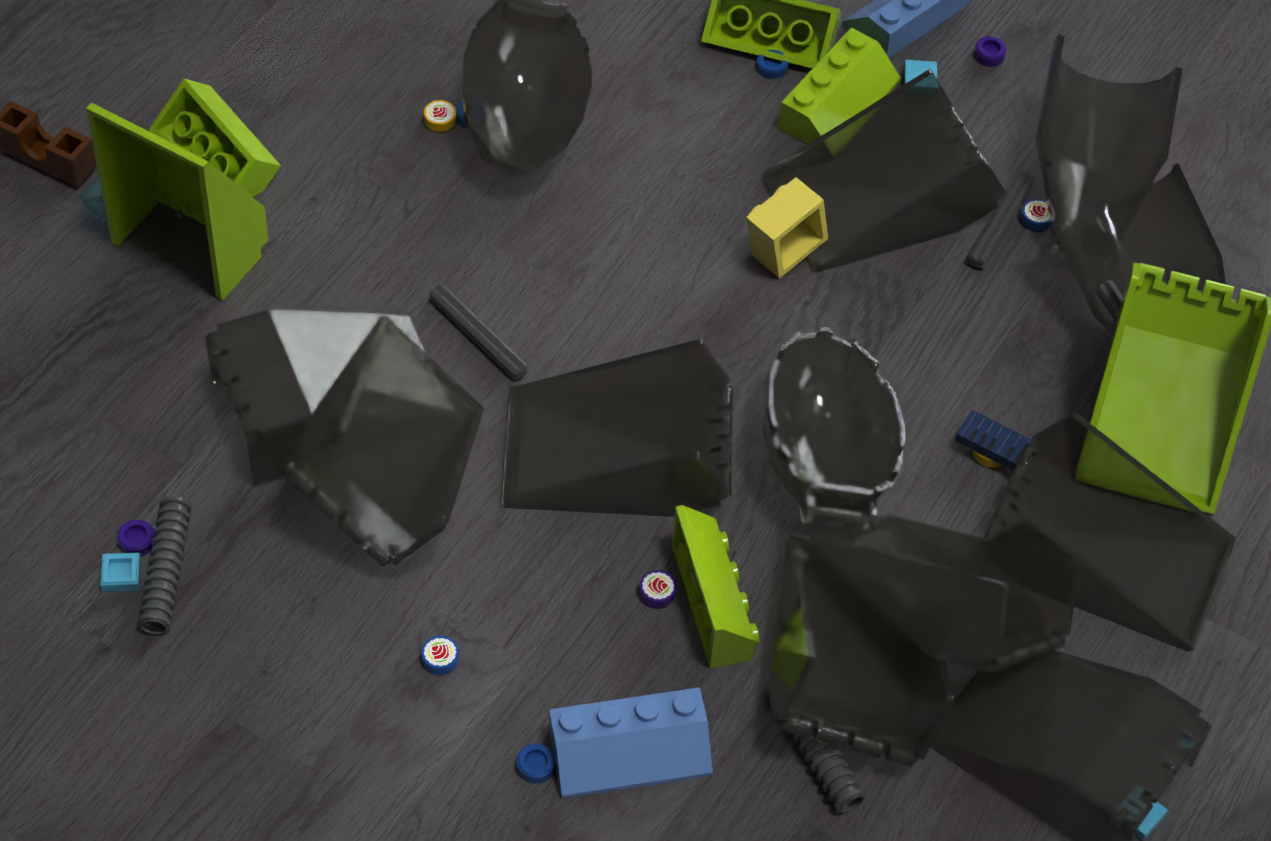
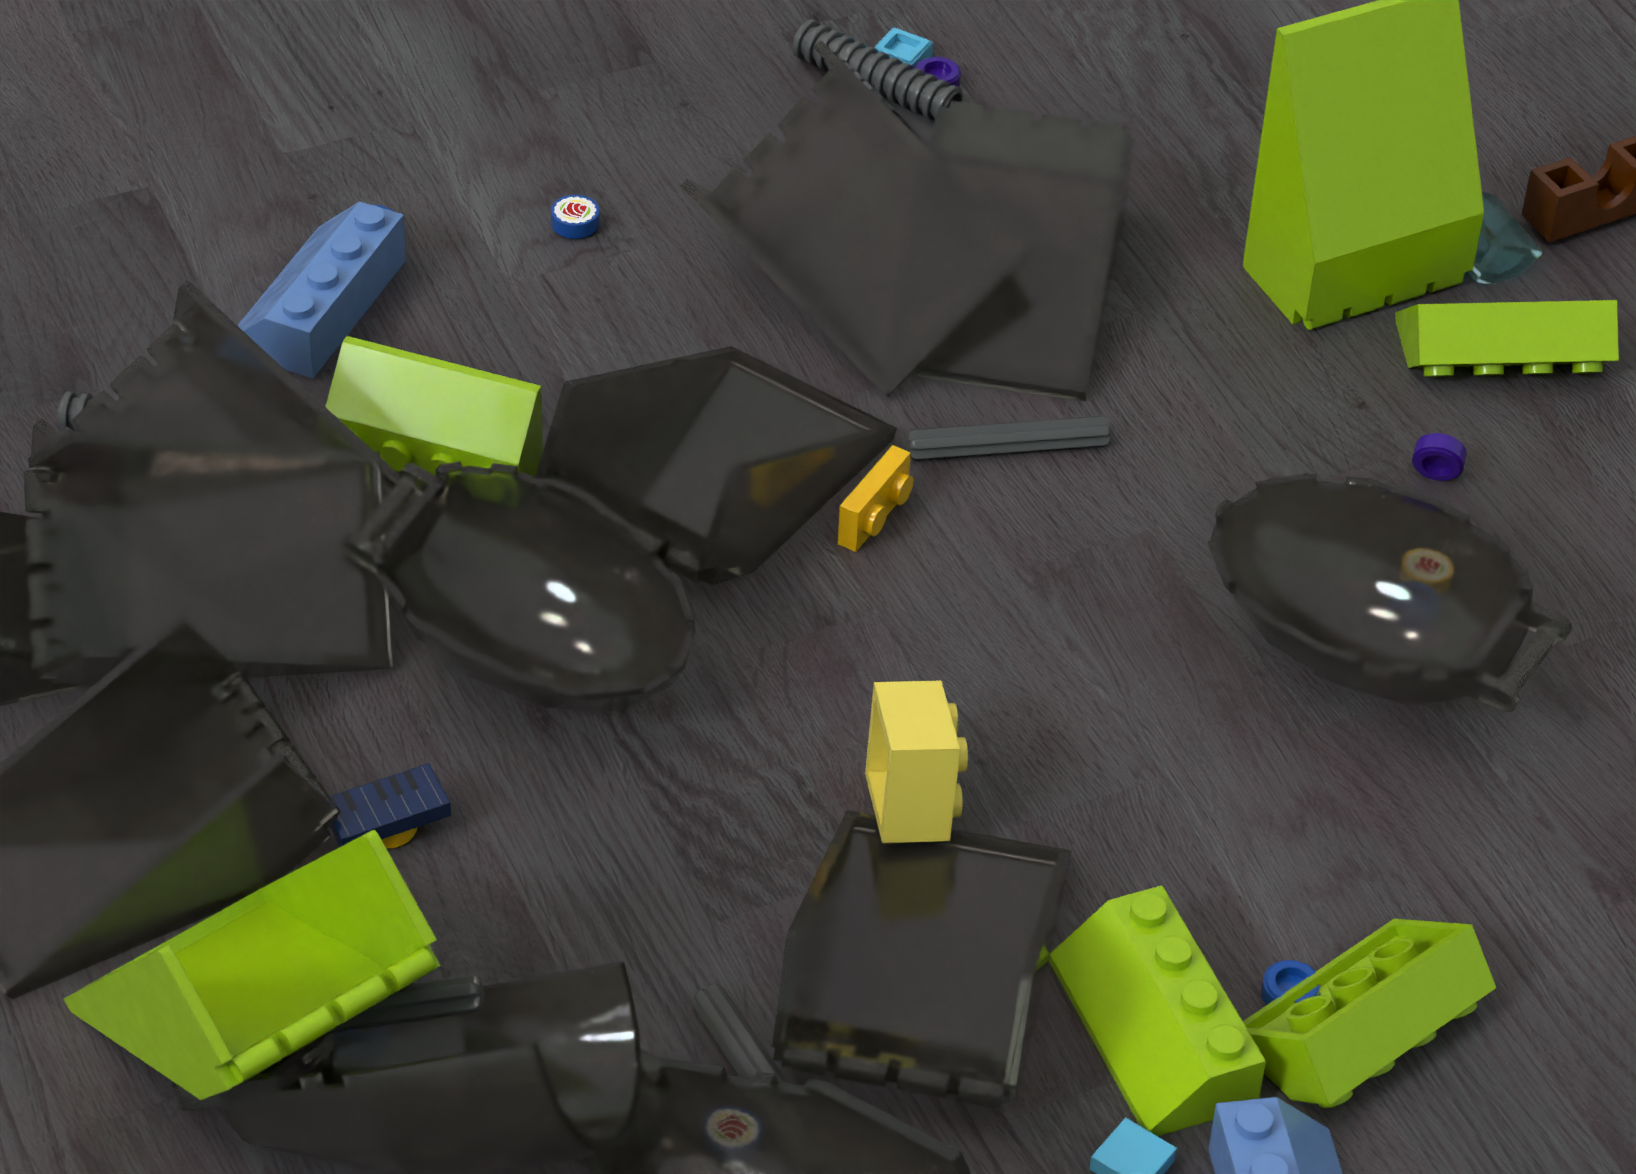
camera: 125 degrees right, 10 degrees down
(349, 136) = (1439, 456): none -> dark purple tile
(573, 356) = (874, 498): none -> yellow plate

